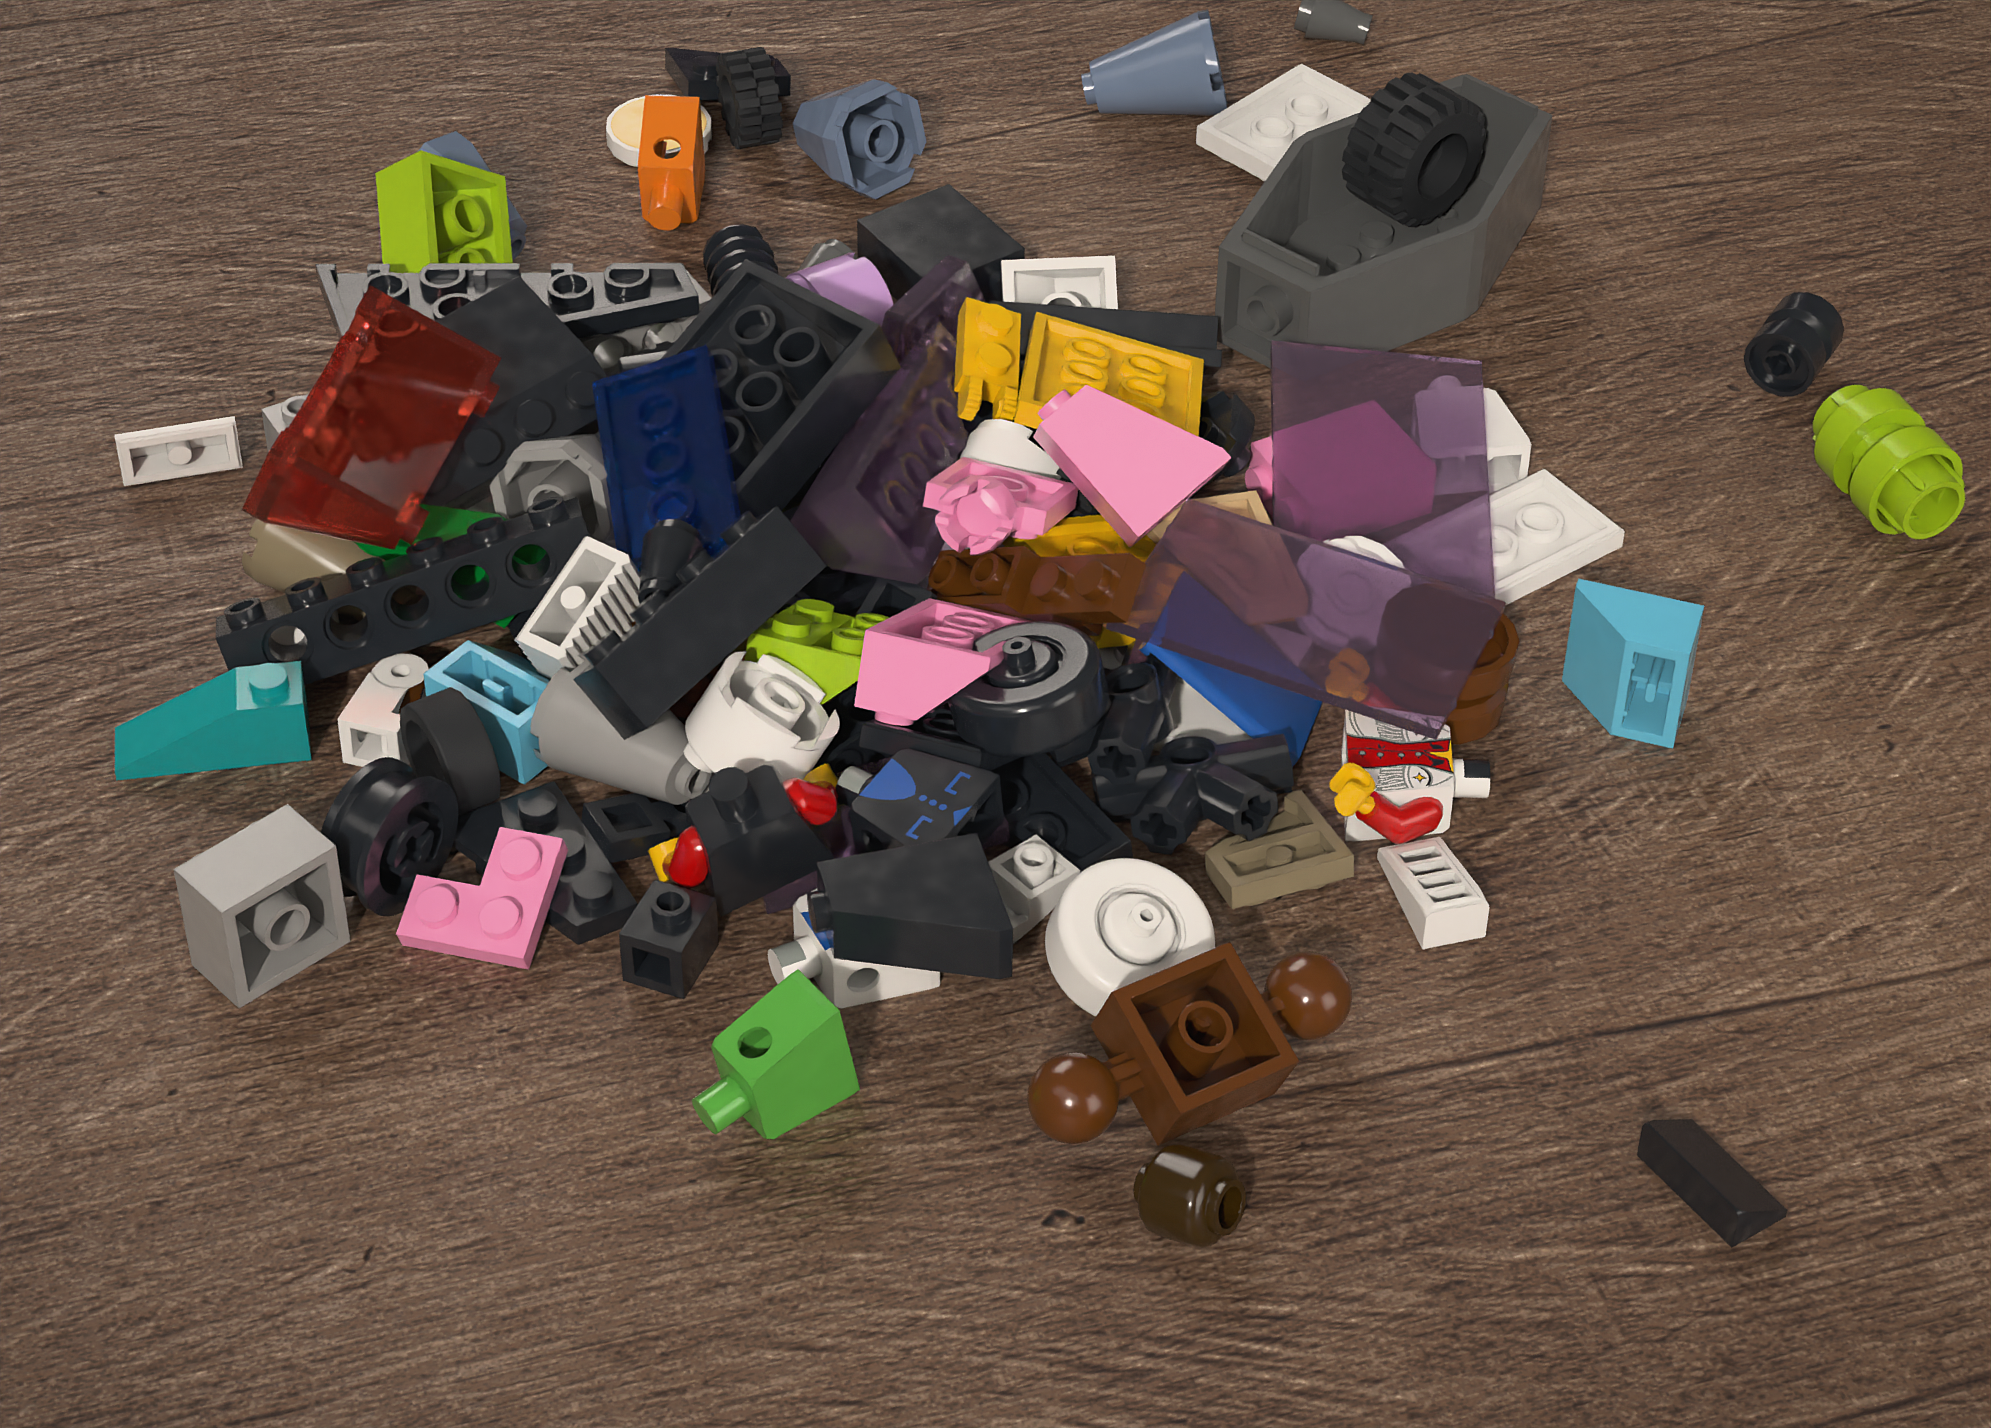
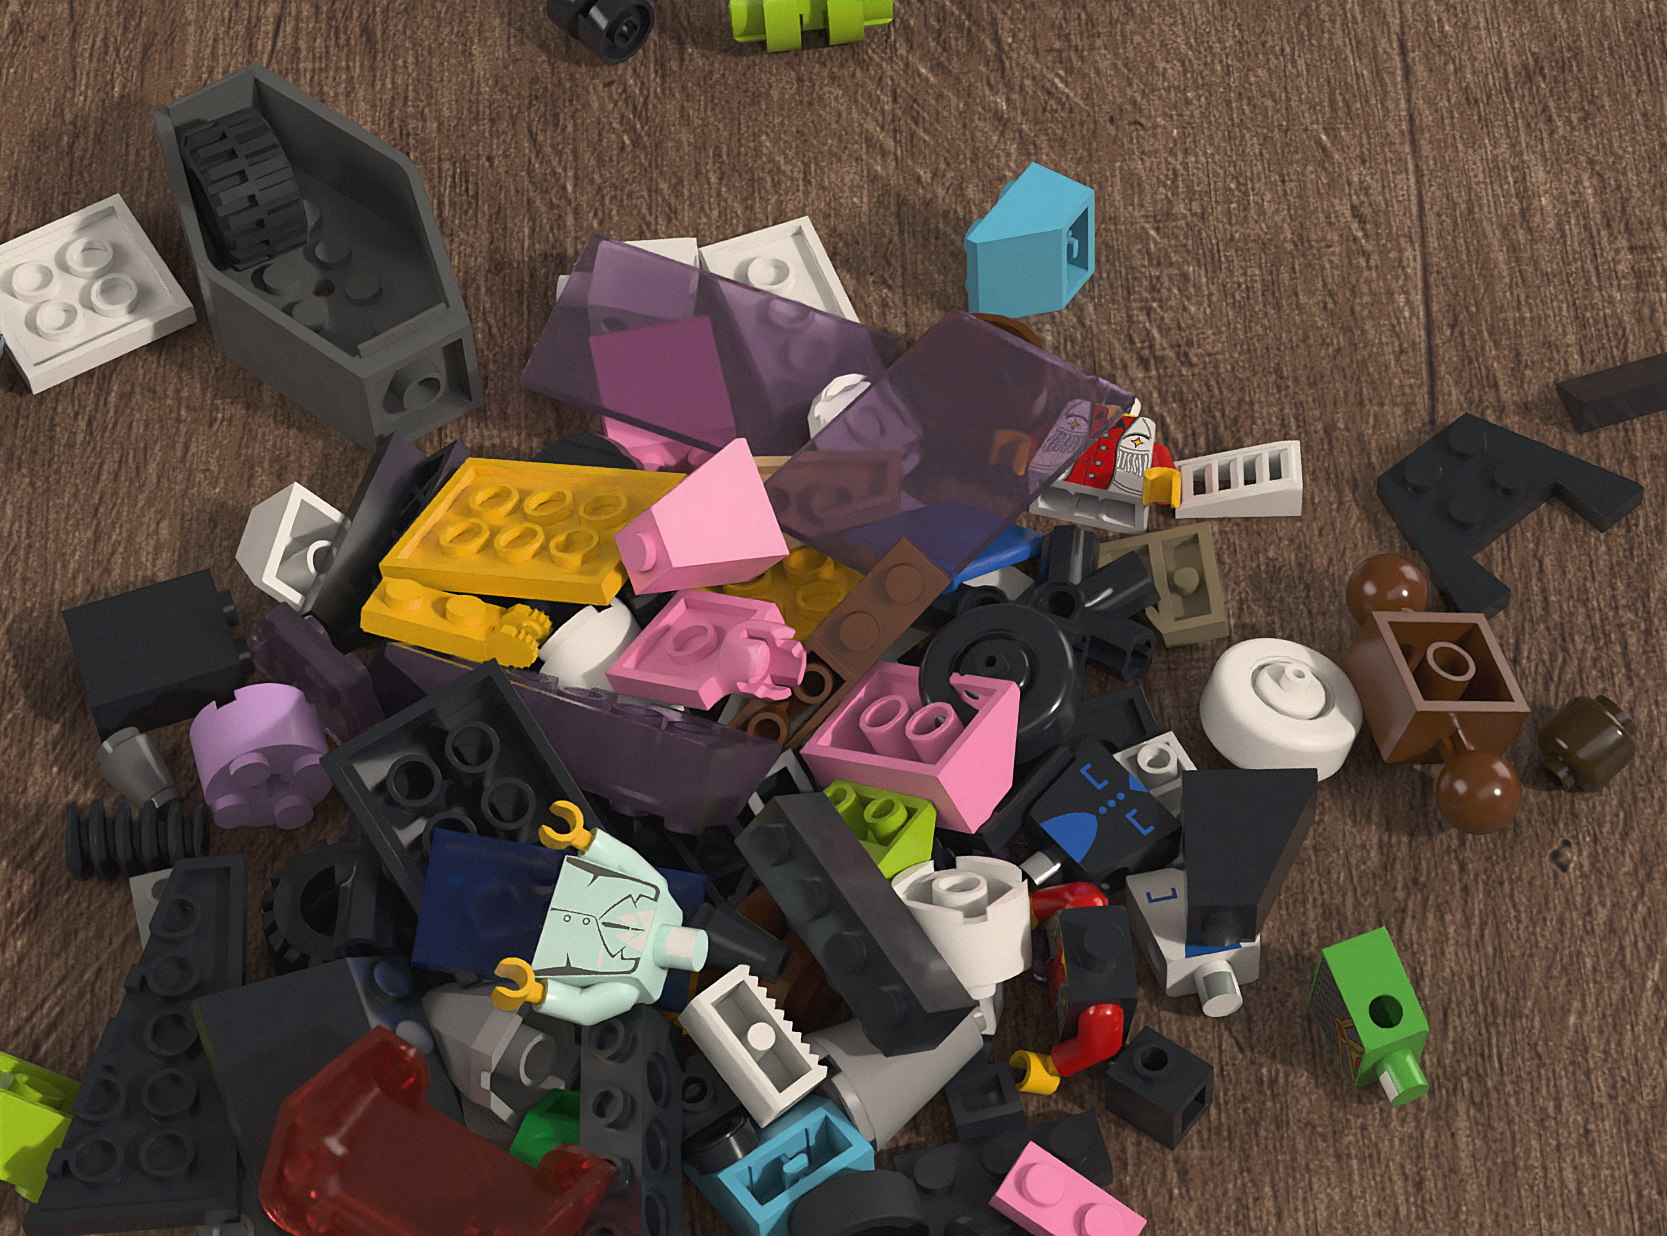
camera: 70 degrees left, 10 degrees up
(501, 642) = (722, 1144): none -> black tile
(627, 462) = (604, 934): none -> light aqua torso
(1501, 1067) = (1476, 486): none -> black wing

